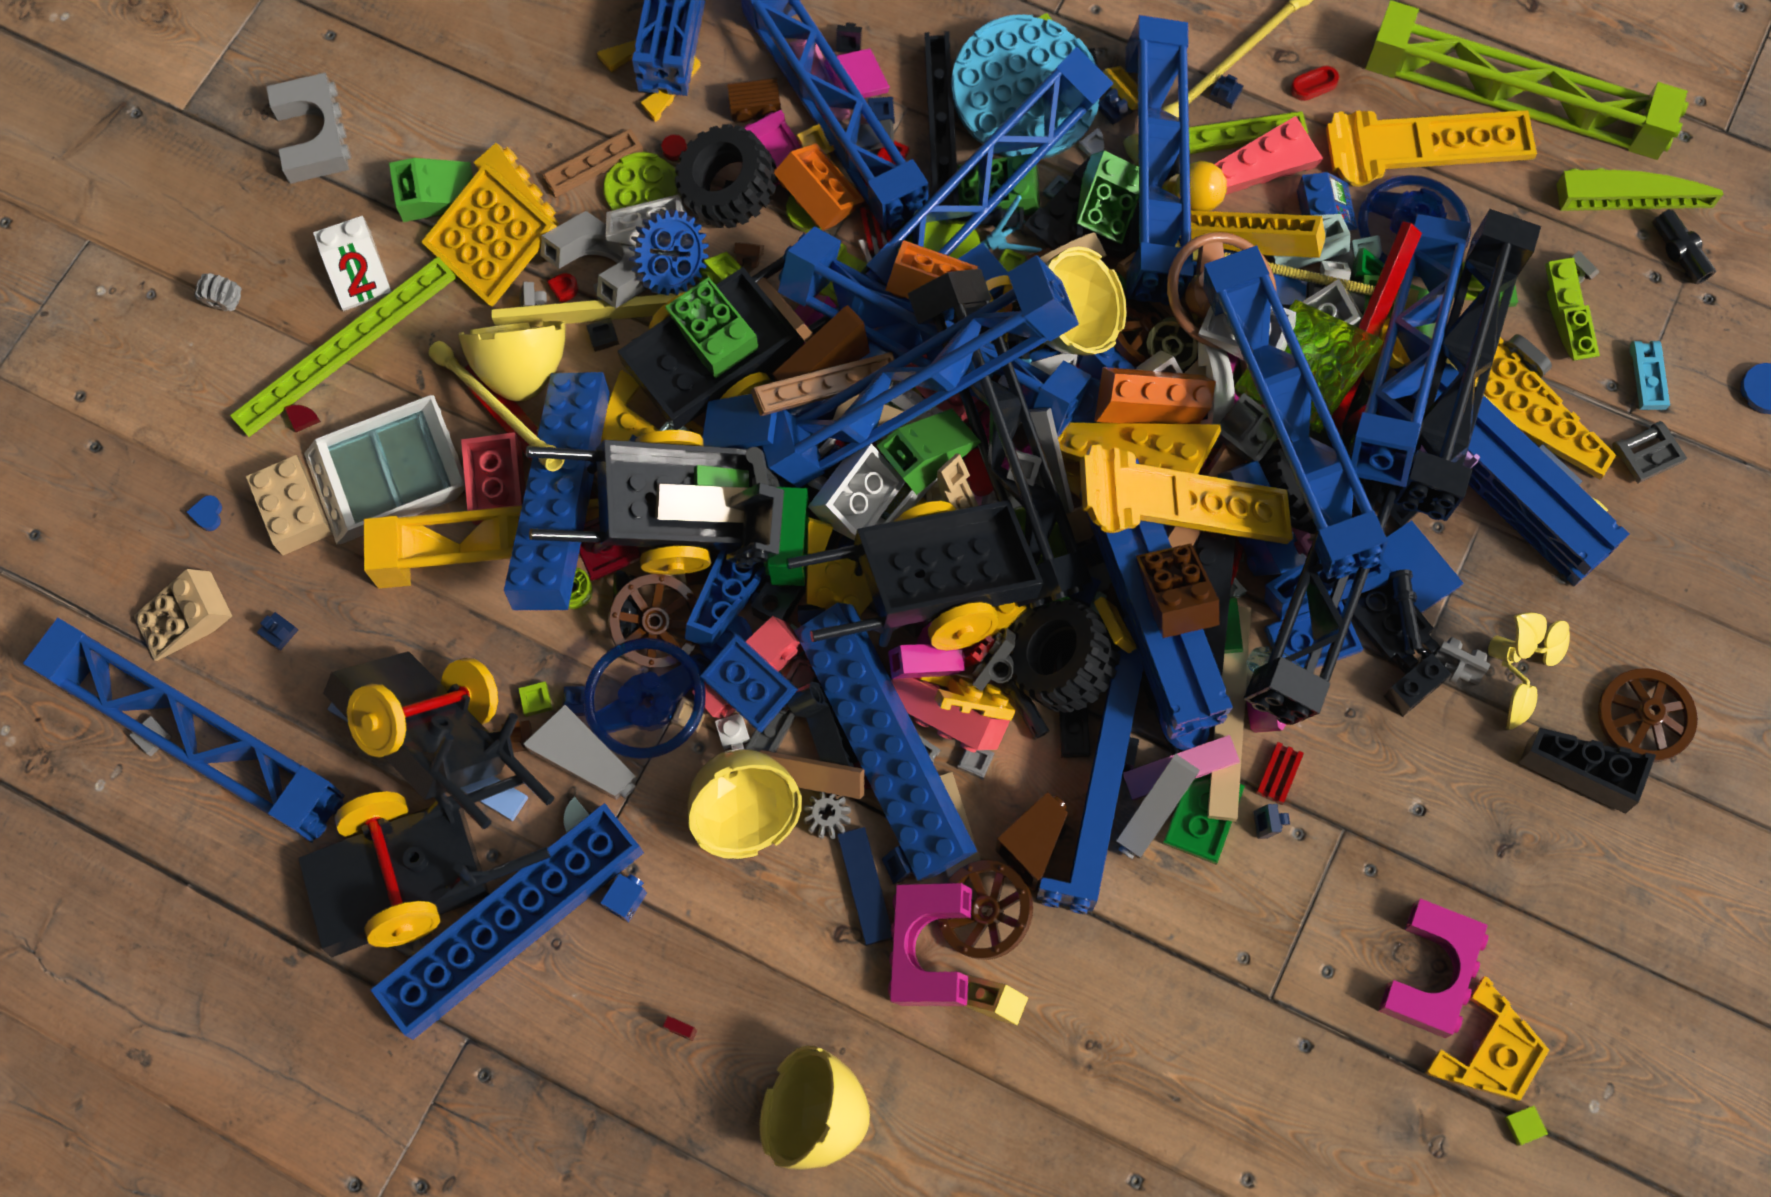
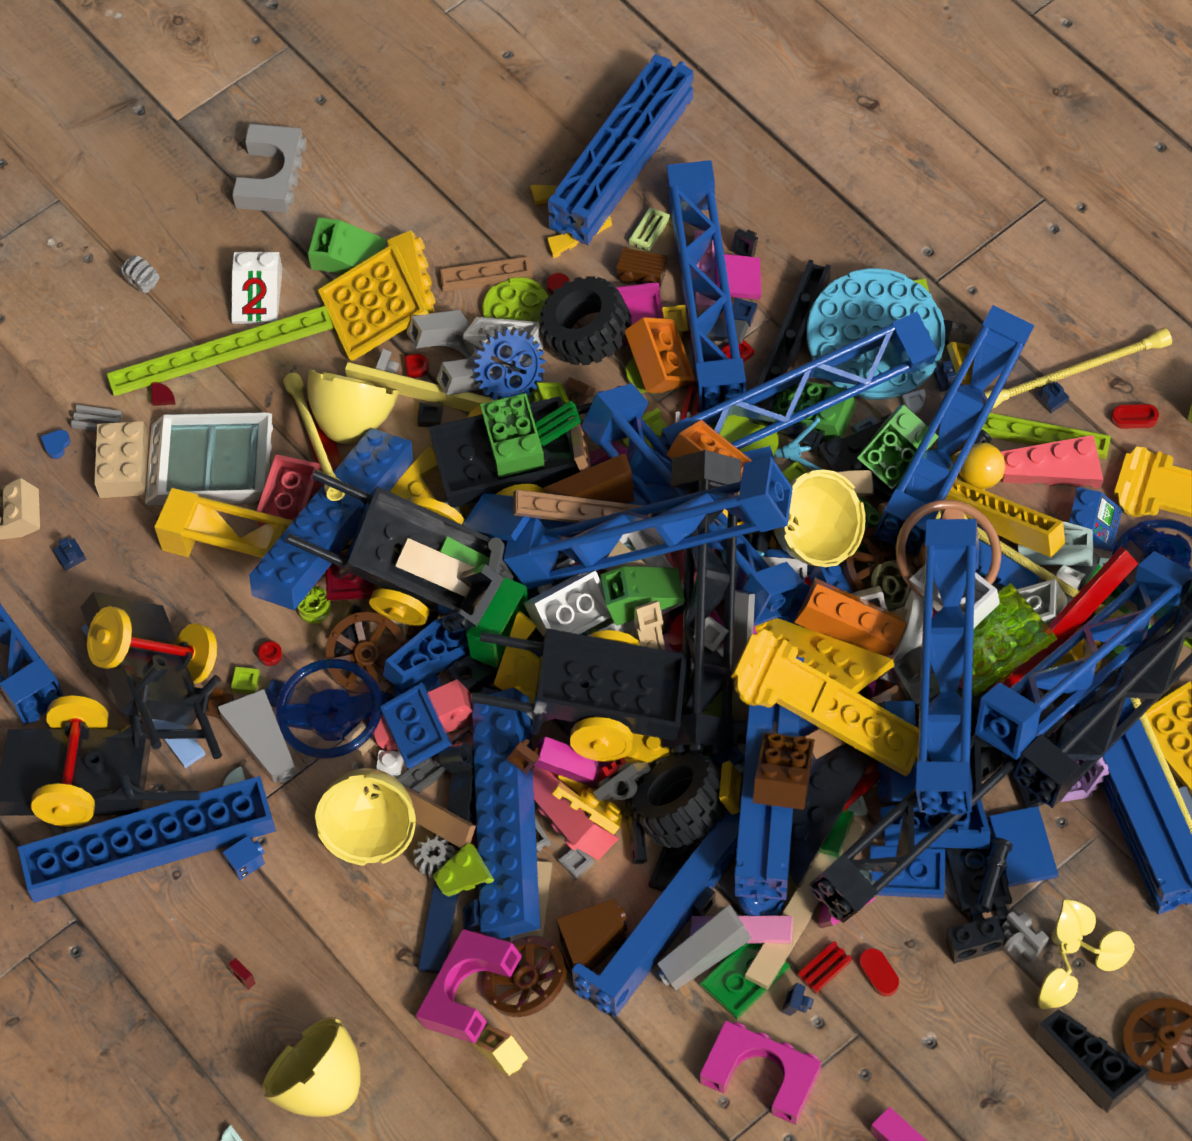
camera: 25 degrees right, 10 degrees down
(237, 465) = (94, 414): none -> light grey tile
(548, 658) = (270, 653): none -> red tile
(741, 73) = (642, 242): none -> yellowish green tile
(752, 292) = (557, 420): none -> green tile
(870, 823) = (462, 872): none -> lime wing
(886, 676) = (524, 757): none -> reddish brown tile
(1307, 895) = (739, 1044): none -> dark pink arch
(1336, 756) = (879, 972): none -> red tile

